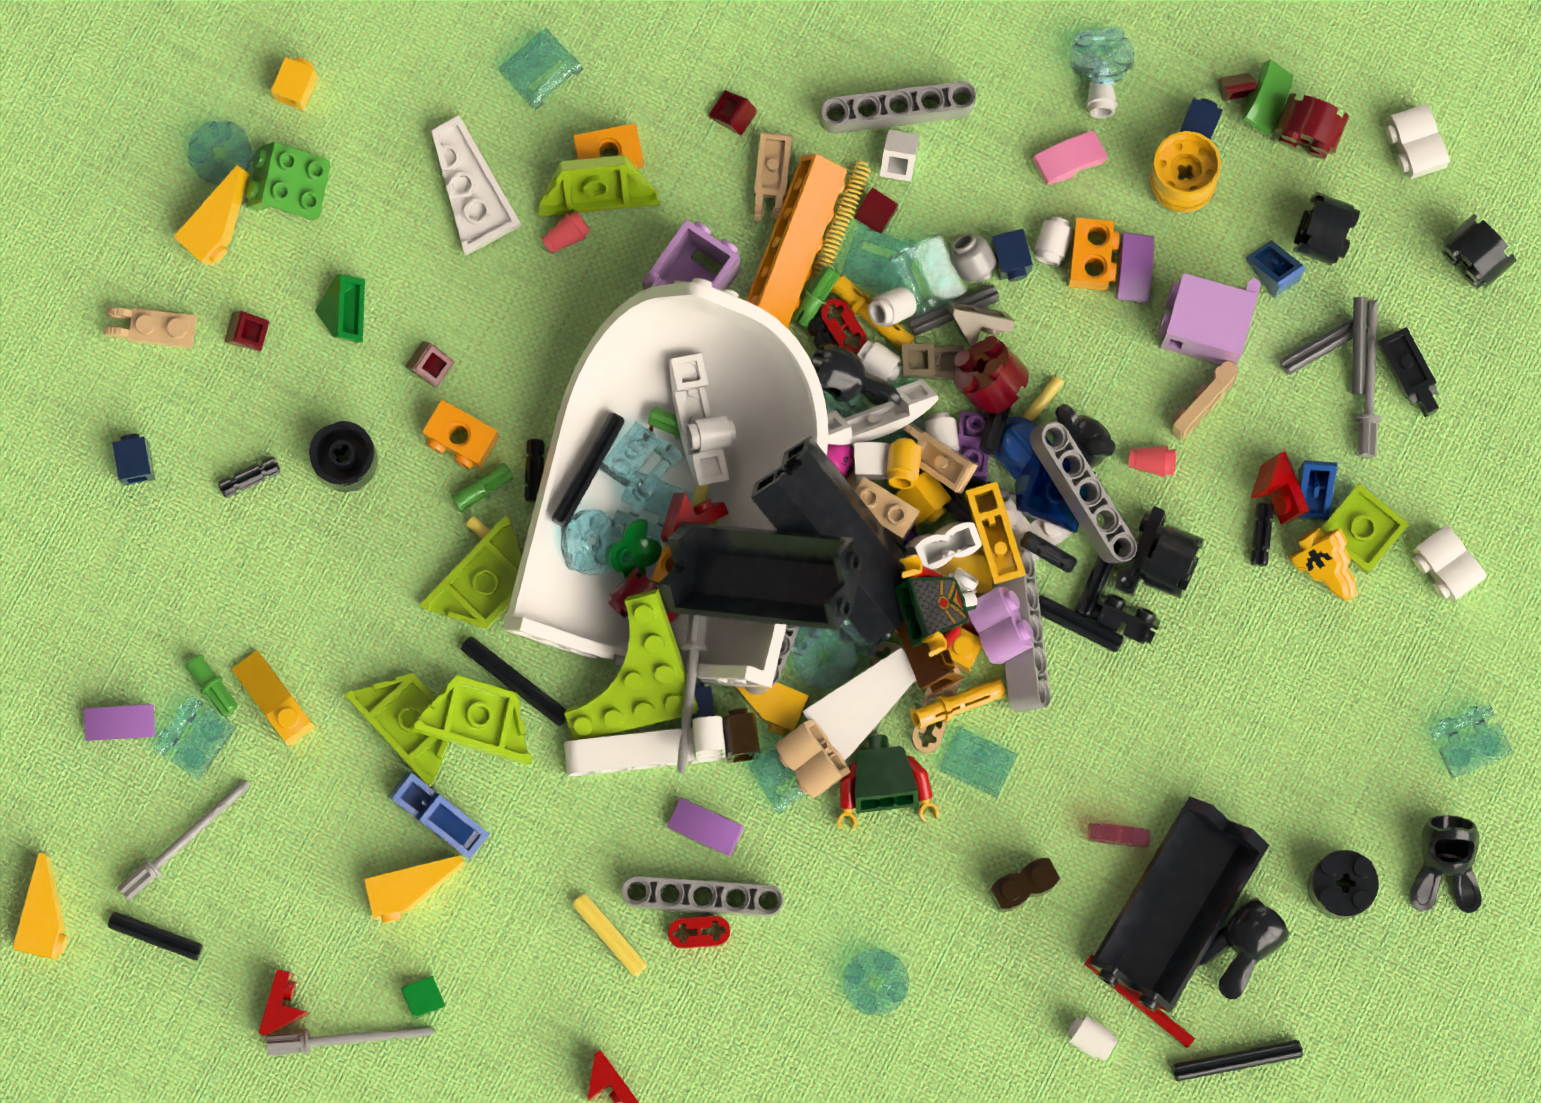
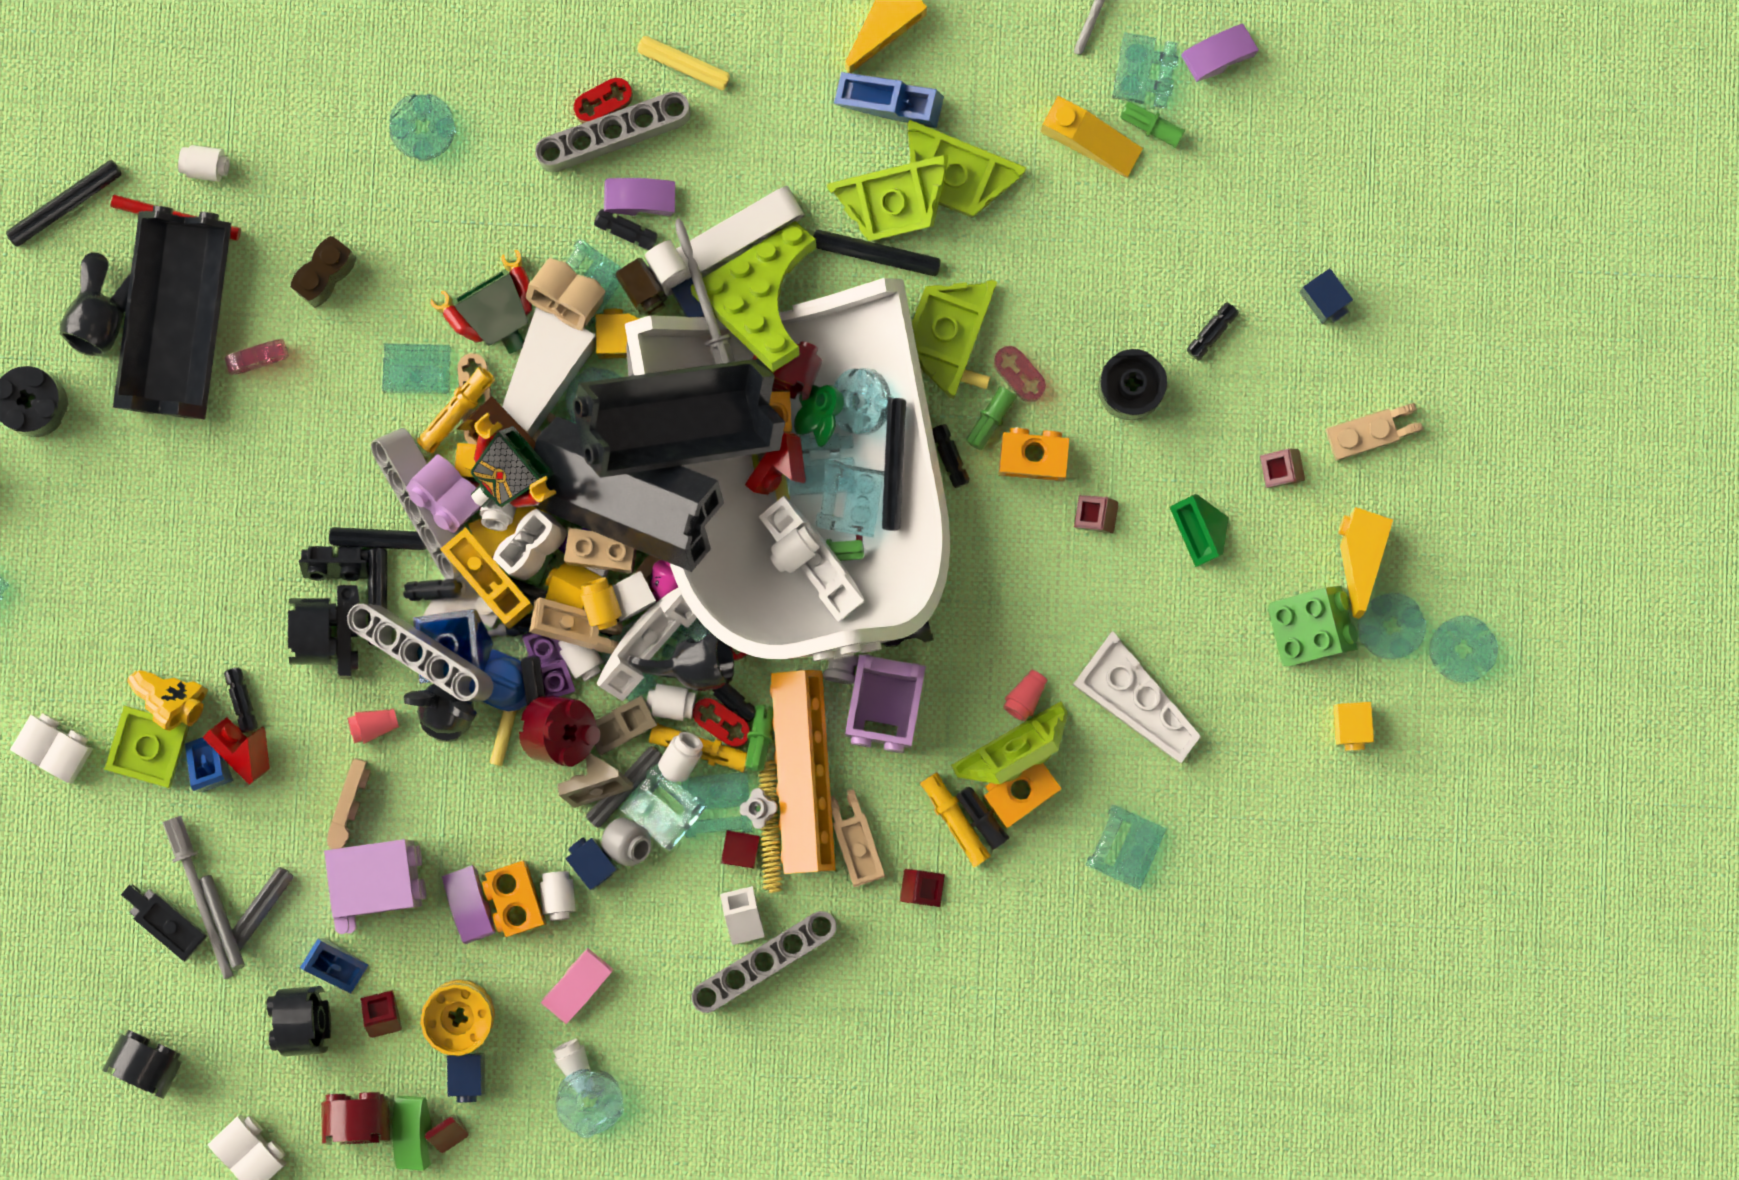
camera: 155 degrees right, 5 degrees up
(175, 122) = (1478, 637): none -> clear light blue plate
(445, 513) = (1026, 369): none -> clear pink beam
(653, 145) = (982, 818): none -> black axle
(678, 168) = (947, 807): none -> yellow pin
(731, 803) = (626, 229): none -> black axle
(838, 241) = (767, 805): none -> plate
(1252, 211) = (380, 1014): none -> dark red slope

